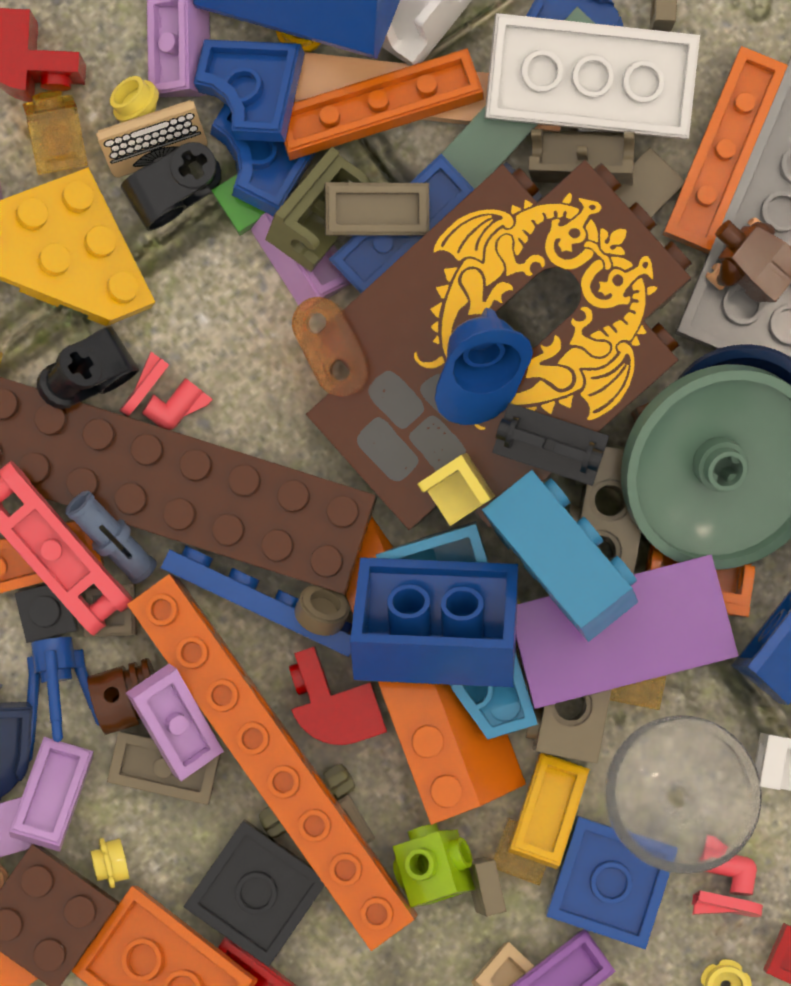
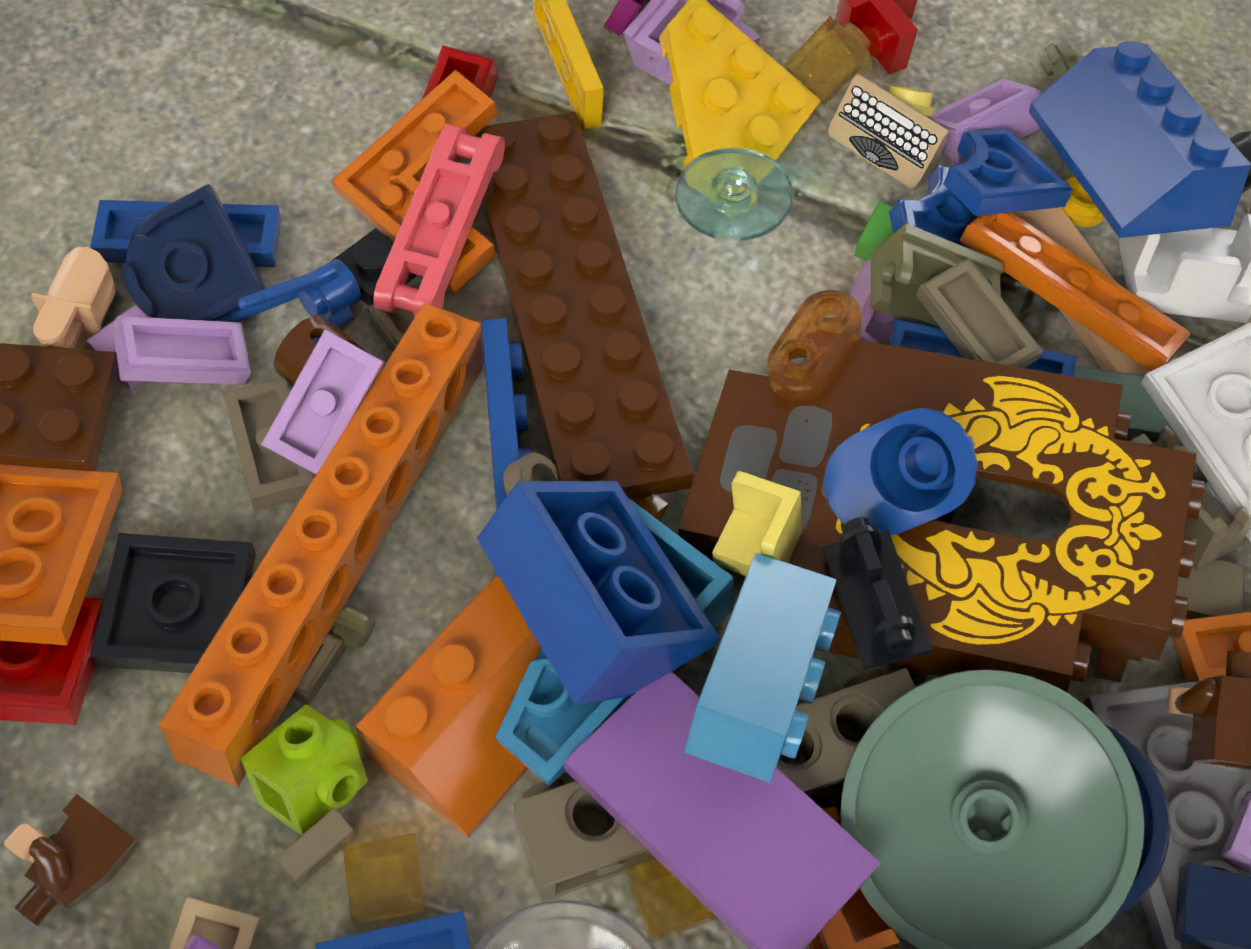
camera: 55 degrees right, 25 degrees down
(86, 370) = (640, 176): black piece -> none
(89, 516) = (494, 229): sand blue pin -> none
(110, 862) = (135, 442): light yellow plate -> none
(153, 308) = (734, 194): none -> clear light blue dish
(166, 415) = (641, 240): coral piece -> none
(168, 187) = (856, 165): black piece -> none
(336, 717) = (428, 565): red brick -> none
(548, 810) = (449, 873): yellow tile -> none

